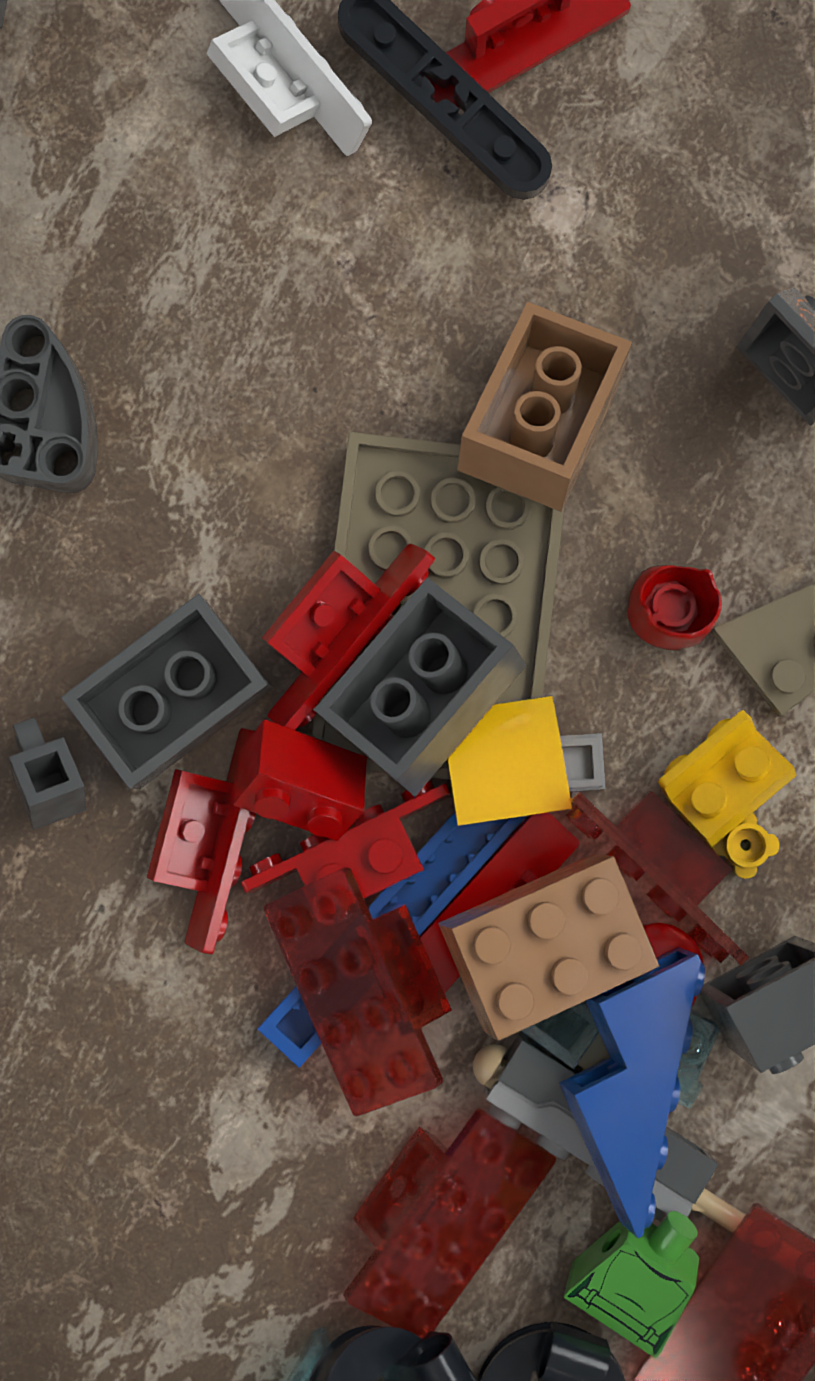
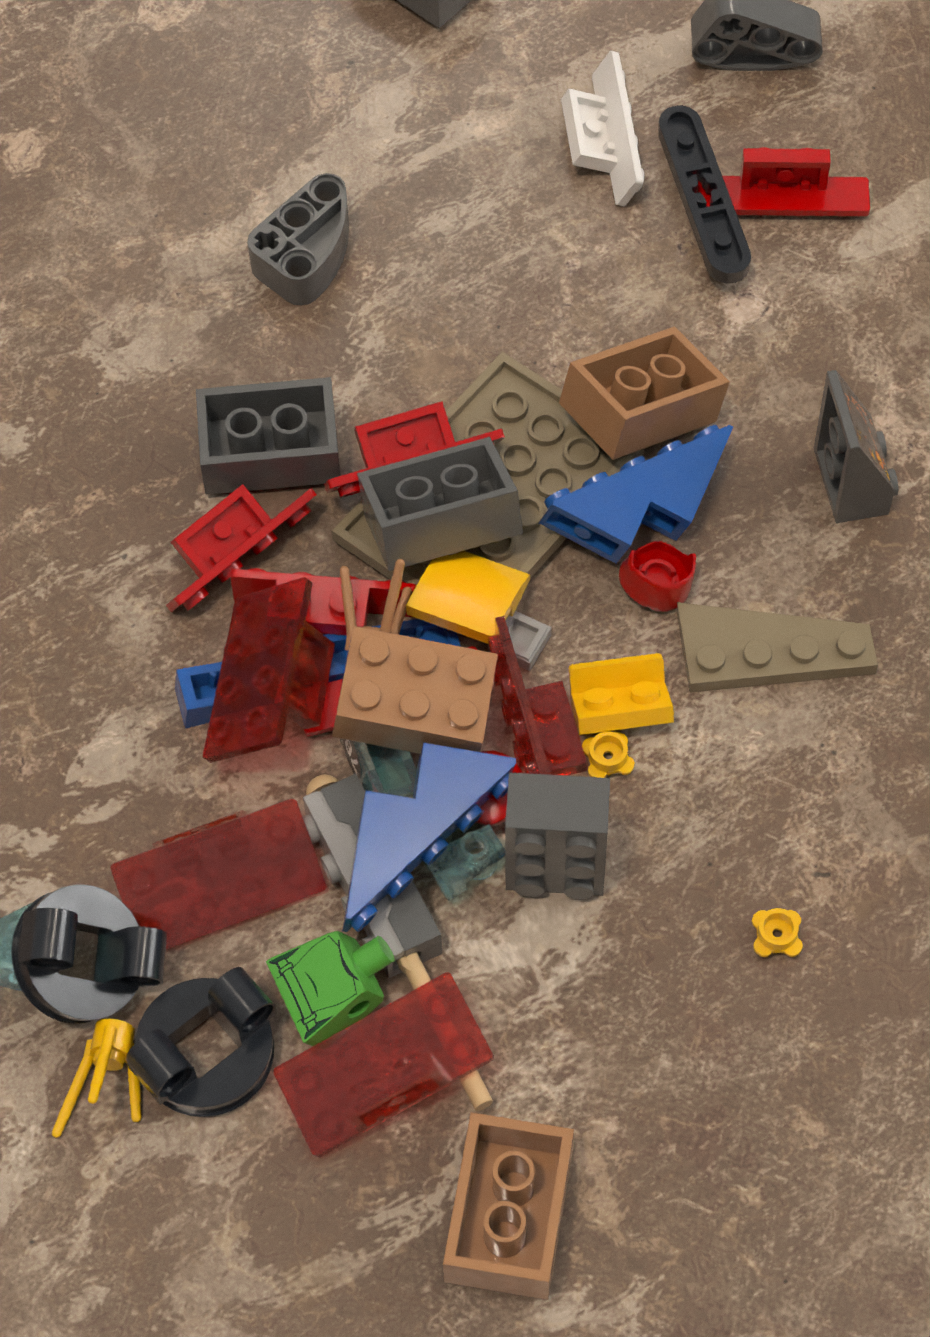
camera: 30 degrees right, 25 degrees down
(45, 777) = (148, 444): dark grey brick -> none
(300, 780) = (317, 519): red brick -> none
(448, 880) = (392, 619): none -> medium nougat plant
(624, 509) = (651, 492): none -> blue slope

